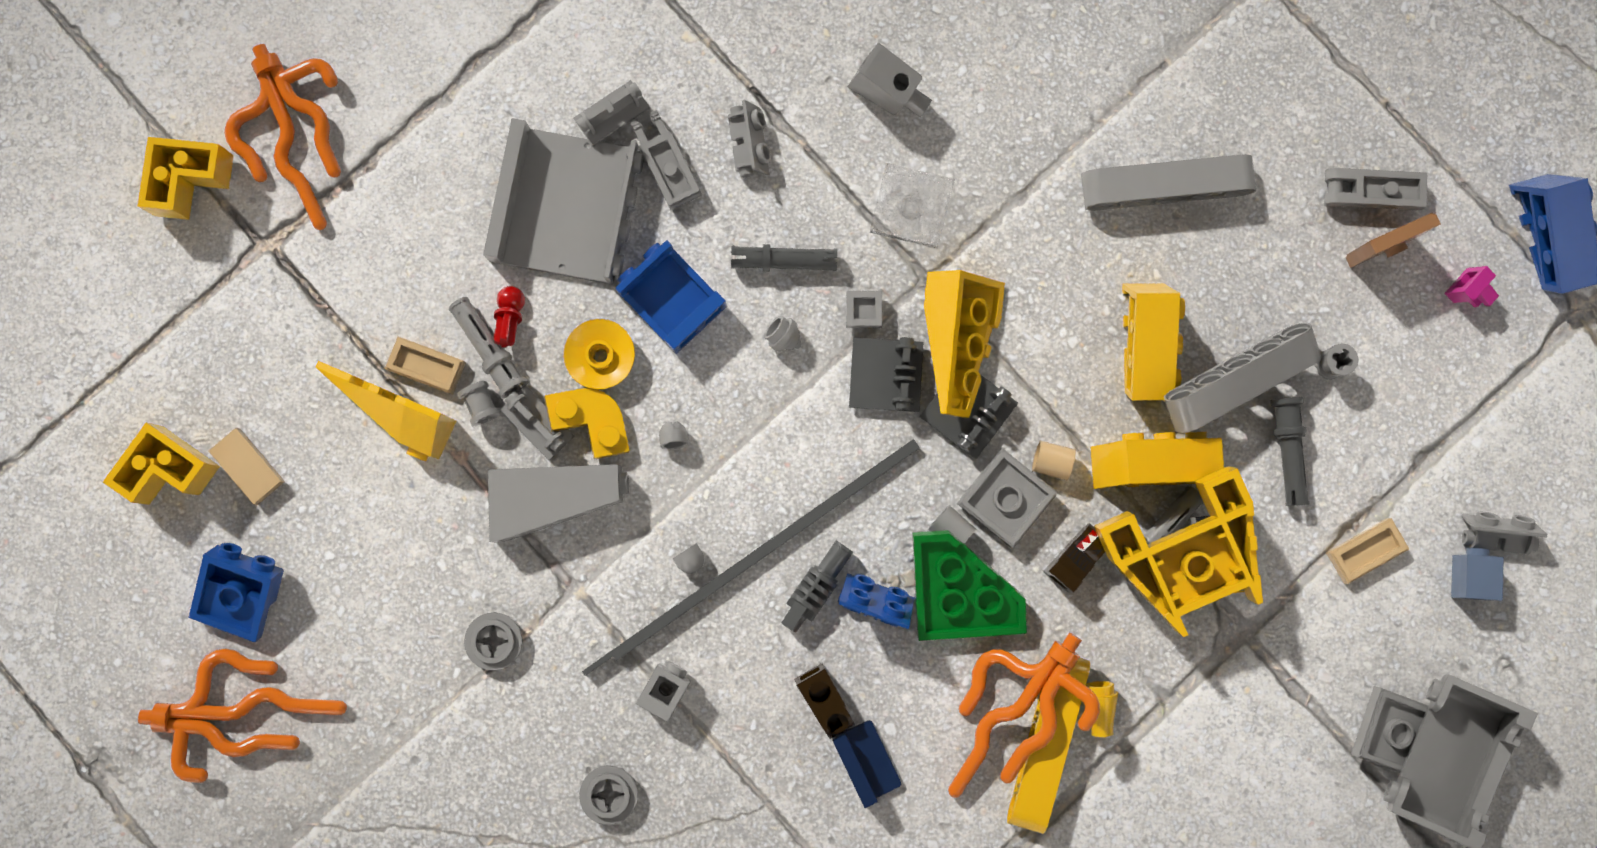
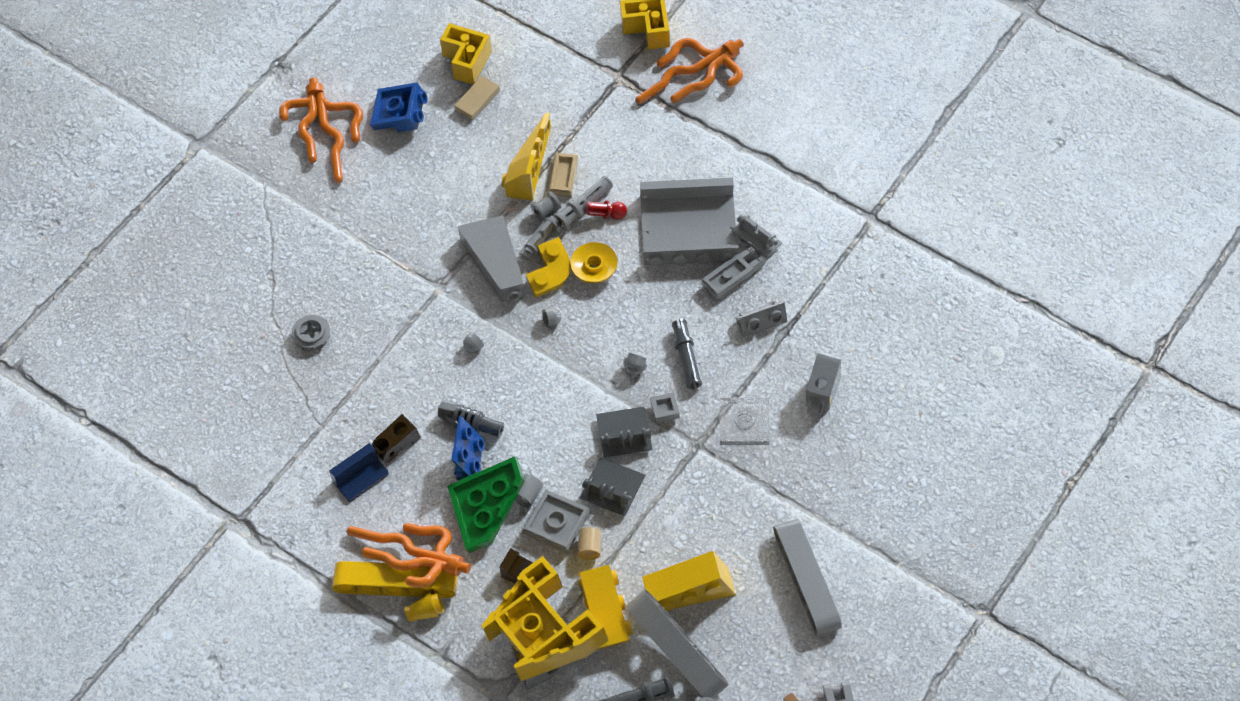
camera: 80 degrees right, 25 degrees down
(481, 653) = (405, 244): light grey gear -> none
(654, 700) = (383, 345): light grey brick -> none
(670, 296) = (643, 295): blue panel -> none
(756, 555) = (487, 385): dark grey piece -> none
(959, 321) = (666, 466): yellow wedge -> none

